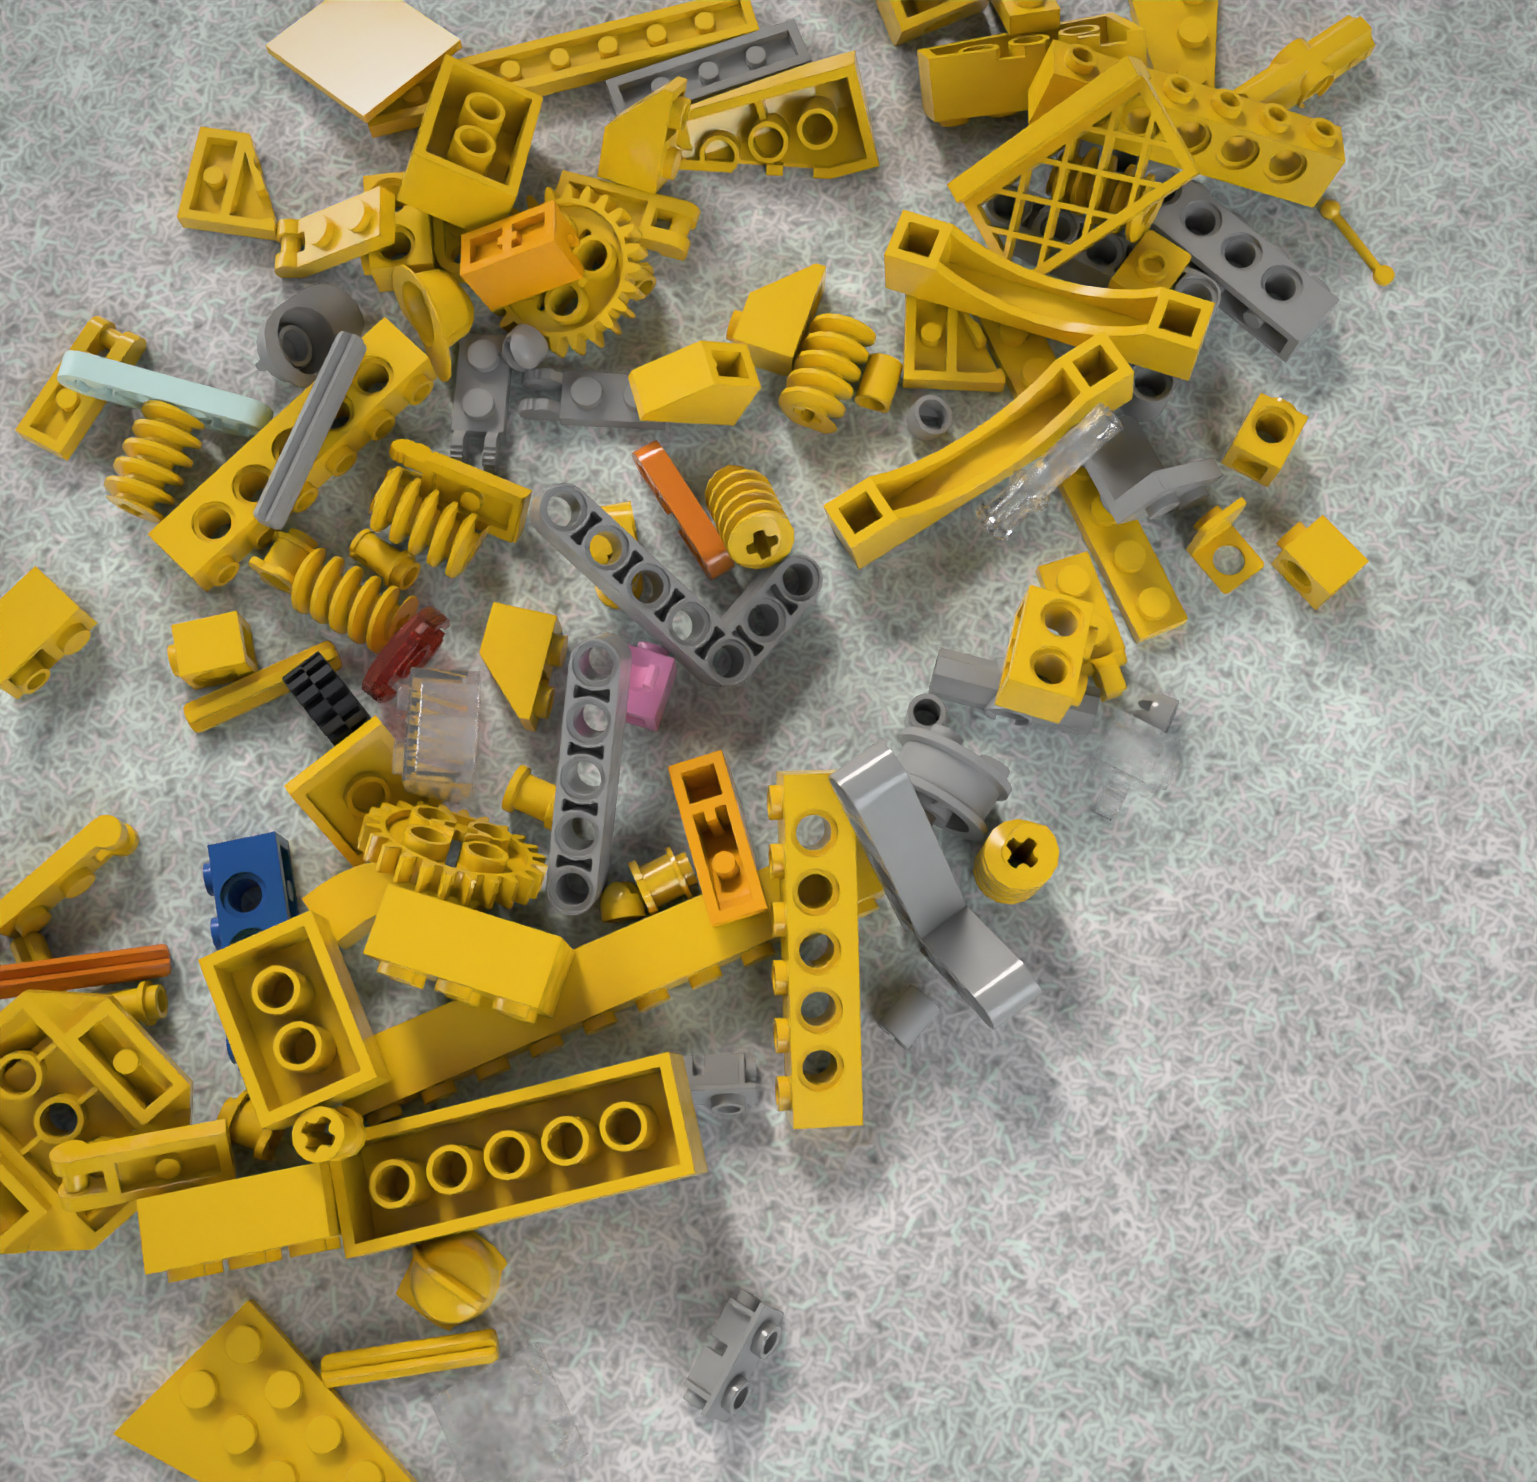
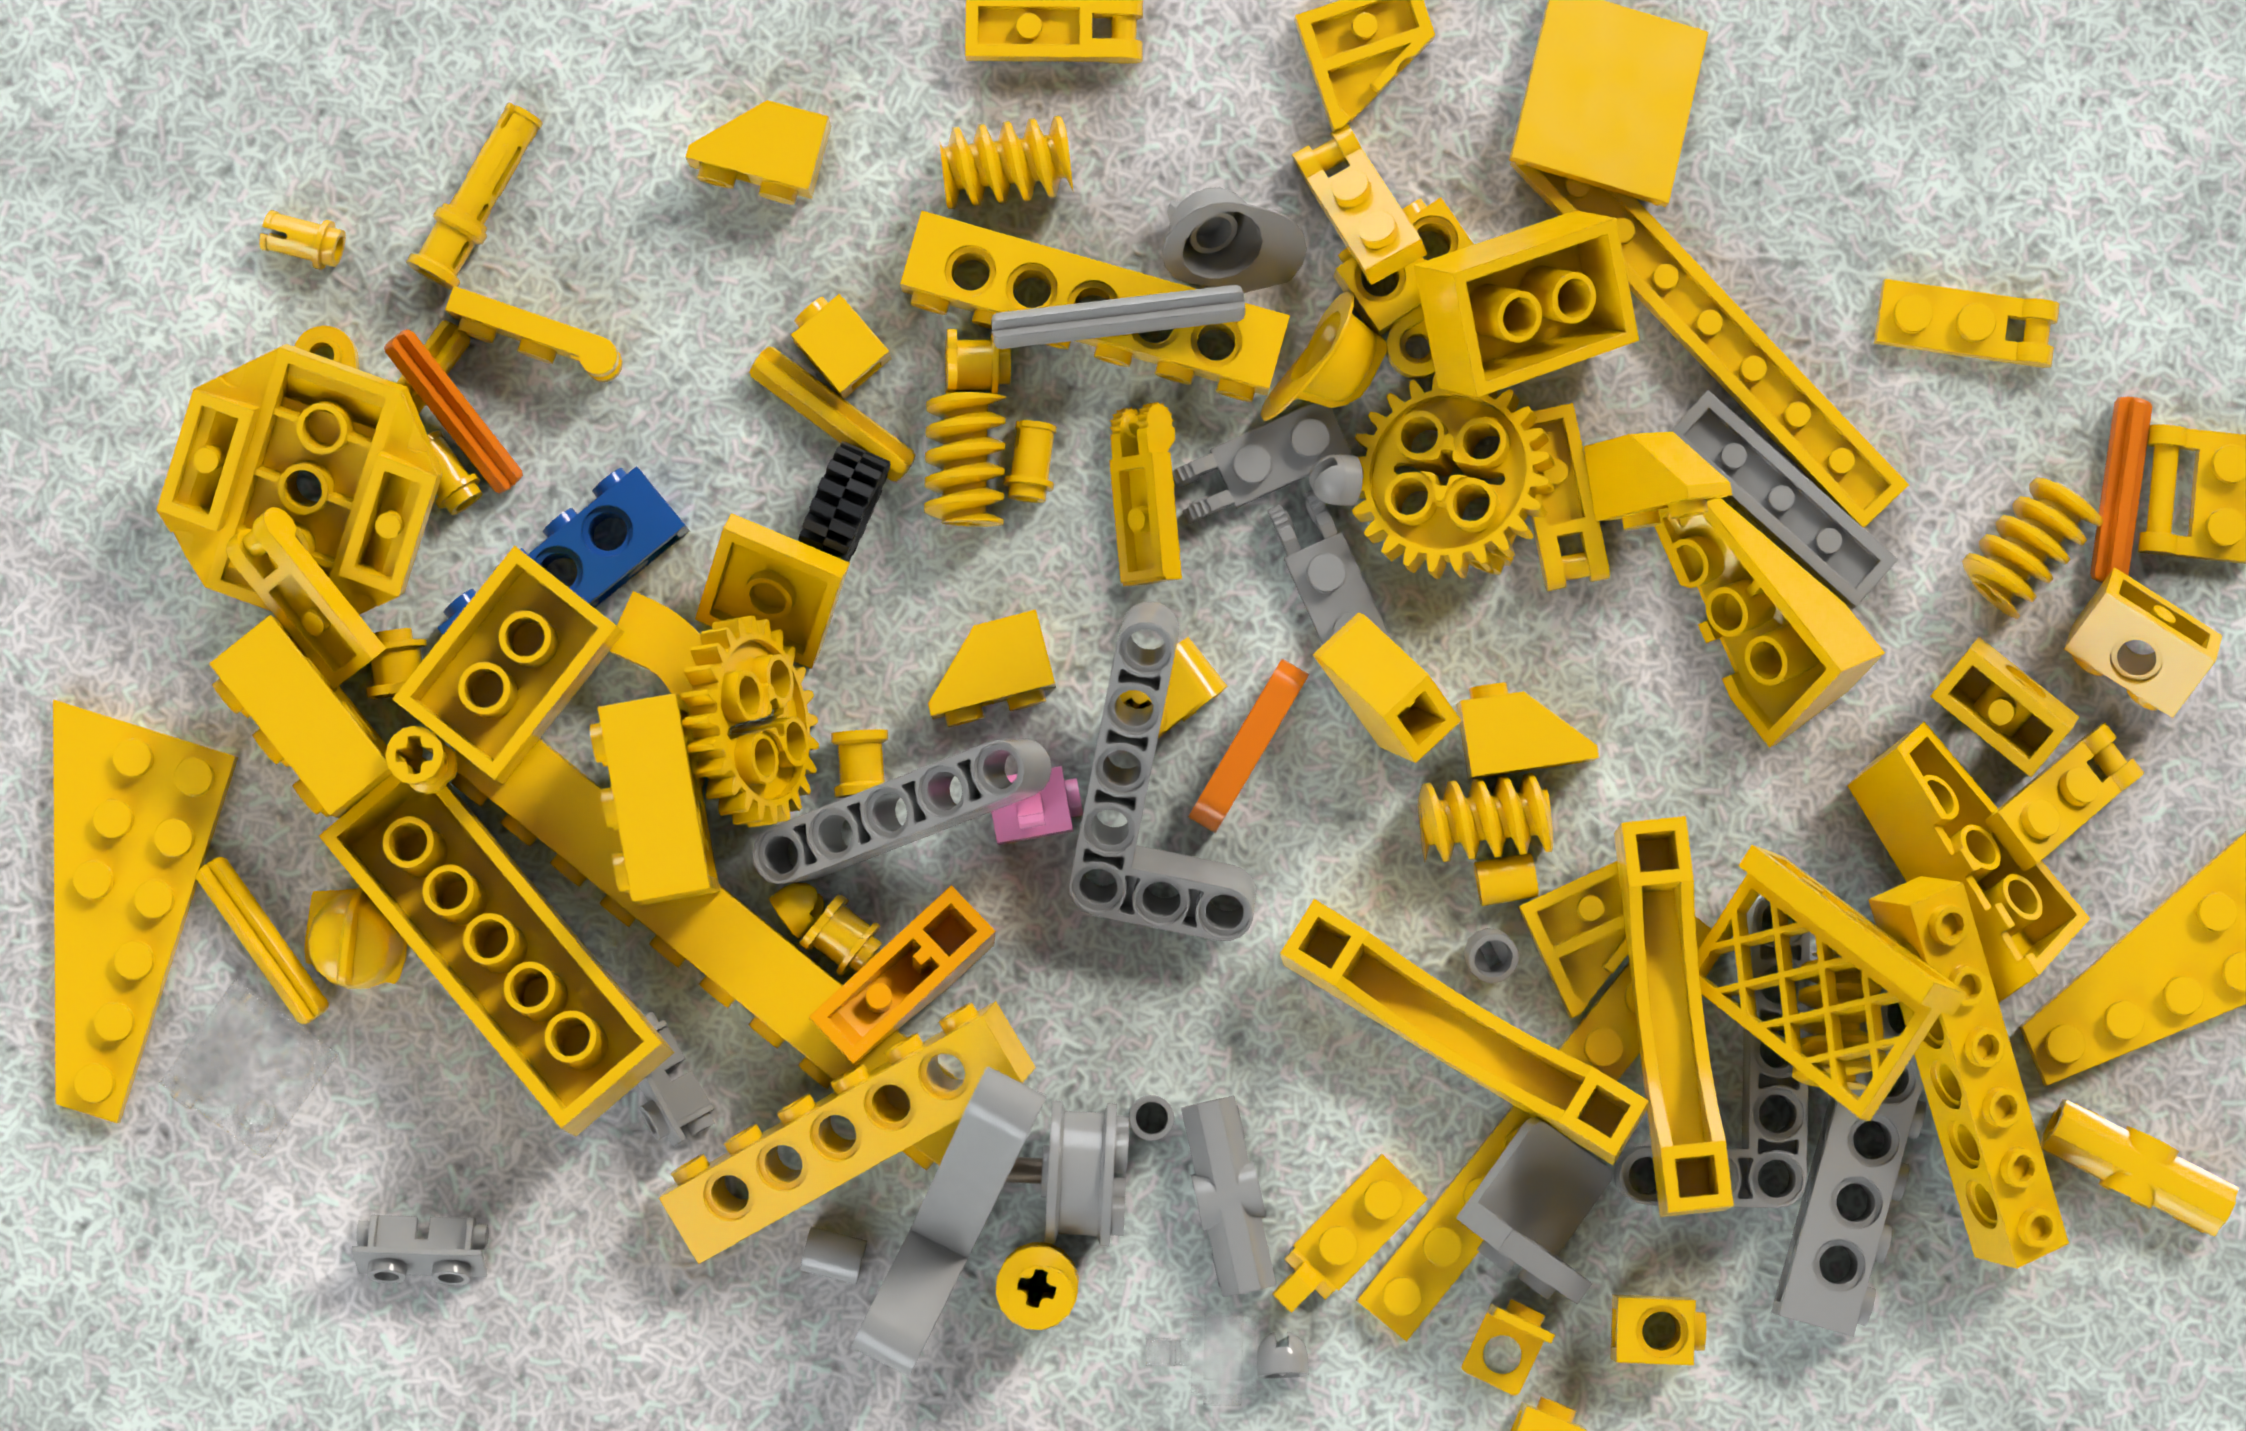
camera: 60 degrees right, 10 degrees up
(135, 385) = (1083, 133): light aqua beam -> none
(409, 647) = (933, 552): clear red tile -> none
(425, 524) = (1088, 488): yellow piece -> none
(440, 734) = (864, 640): clear slope -> none
(520, 256) = (1425, 428): light orange hinge -> none
(749, 517) = (1265, 824): yellow piece -> none
(1031, 488) = (1456, 1107): clear pin -> none
(1038, 651) = (1267, 1198): yellow brick -> none
(1151, 264) = (1774, 1113): yellow bracket -> none
(1382, 274) = (1935, 1371): yellow hinge -> none

